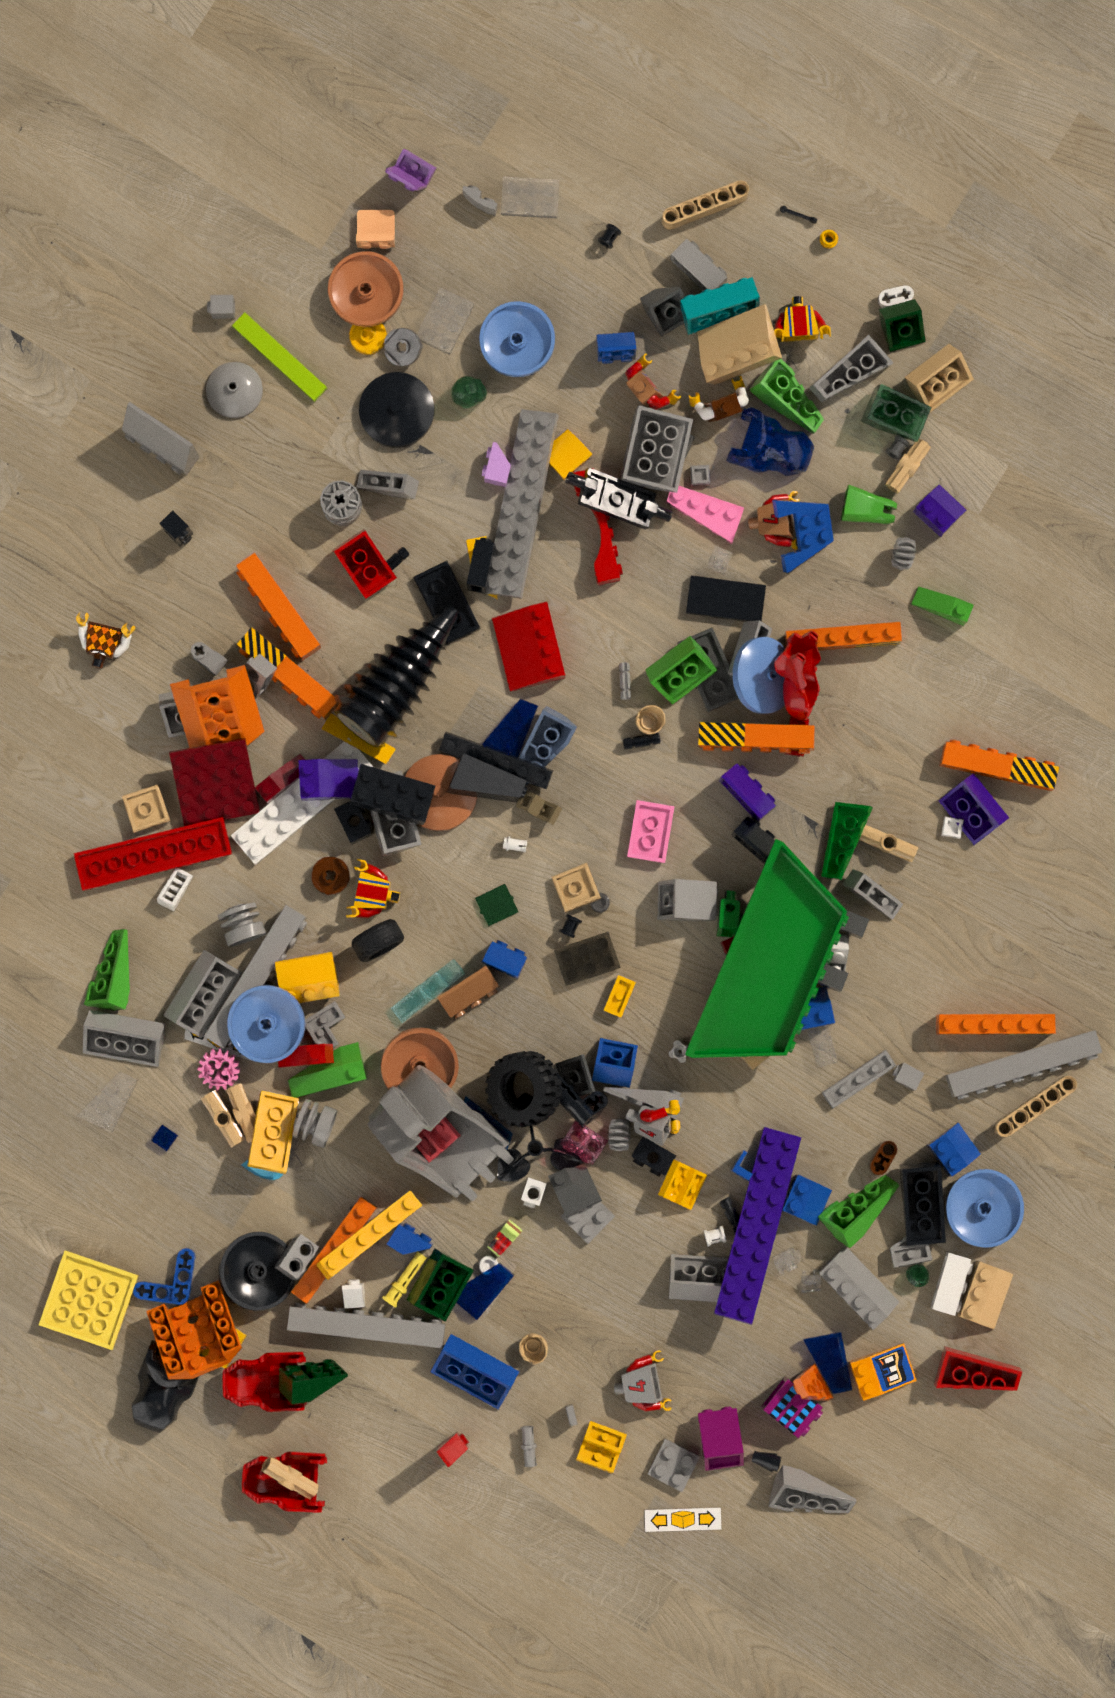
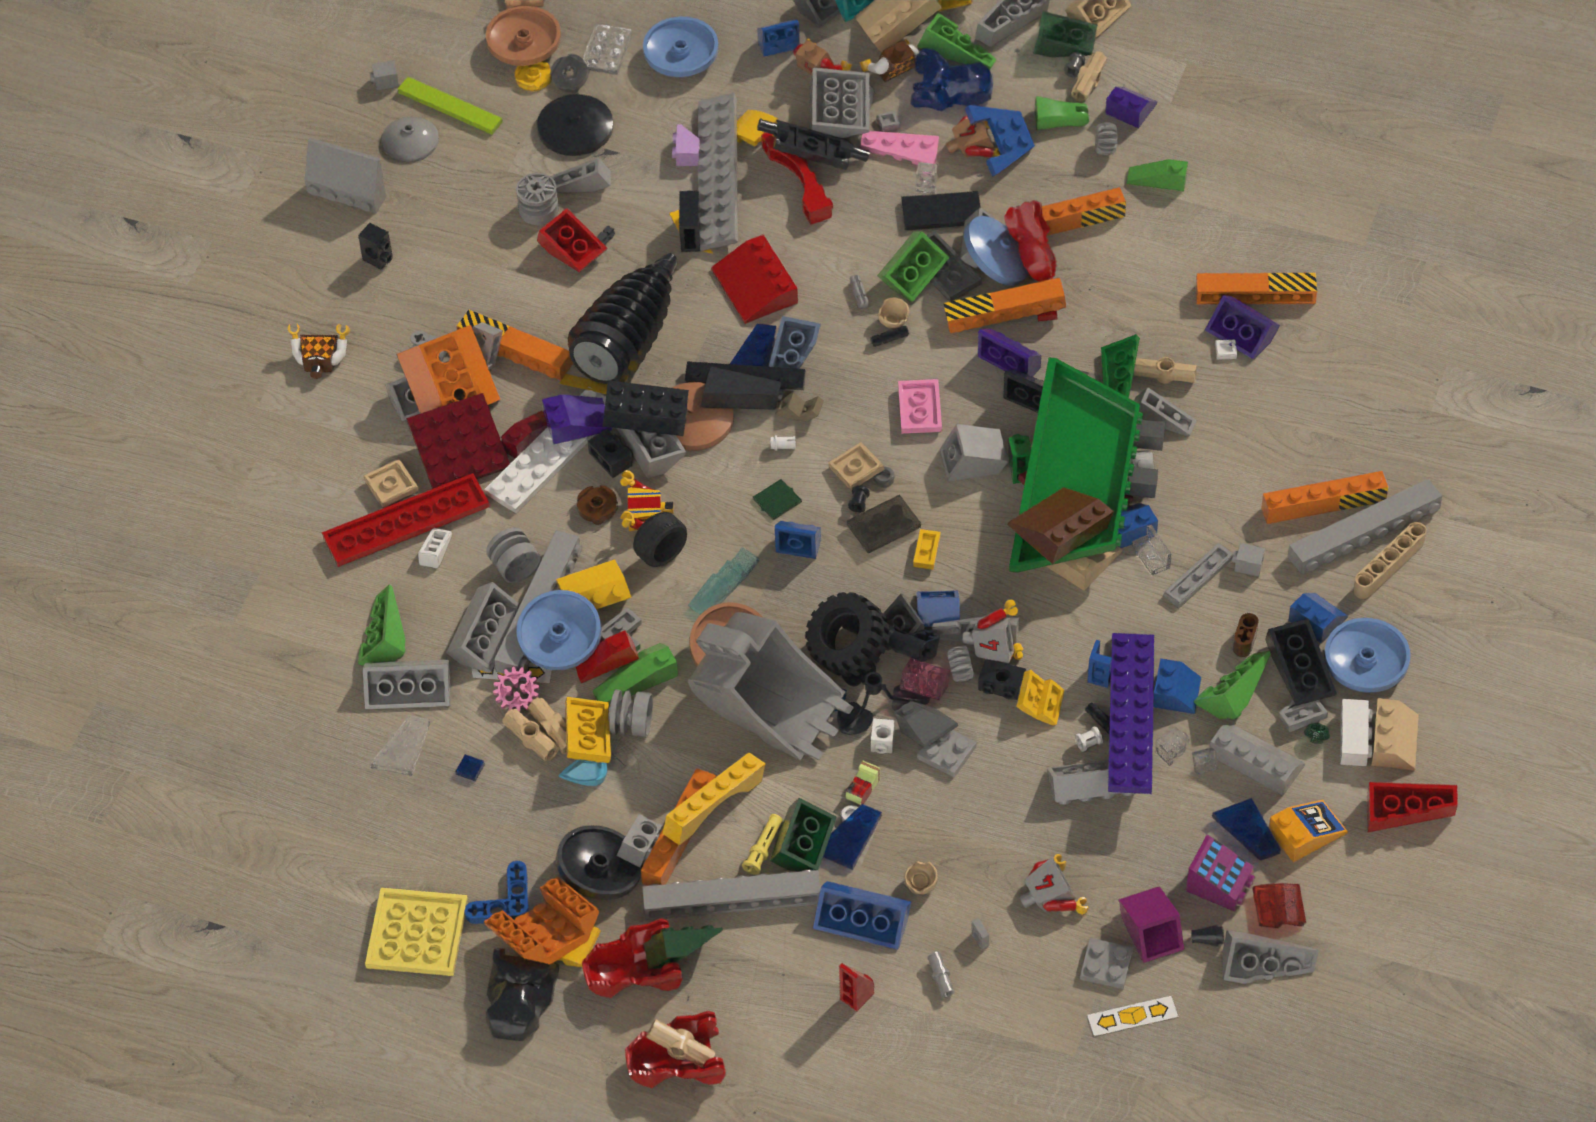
camera: 10 degrees left, 30 degrees down
(278, 606) = (492, 293): orange brick -> none
(353, 1294) = (710, 859): white slope -> none
(407, 1241) = (759, 800): blue slope -> none
(437, 1140) = (765, 699): coral slope -> none
(441, 591) = (651, 248): black tile -> none
(468, 392) = (643, 95): clear green hair -> none
(469, 993) = (766, 569): medium nougat slope -> none
(601, 1447) = (1021, 961): yellow slope -> none
(674, 1052) = (1003, 581): white plate -> none
(741, 1023) = (1062, 523): none -> reddish brown slope
(812, 1385) = (1231, 842): orange wing -> none
(836, 1443) = (1279, 905): none -> clear red slope

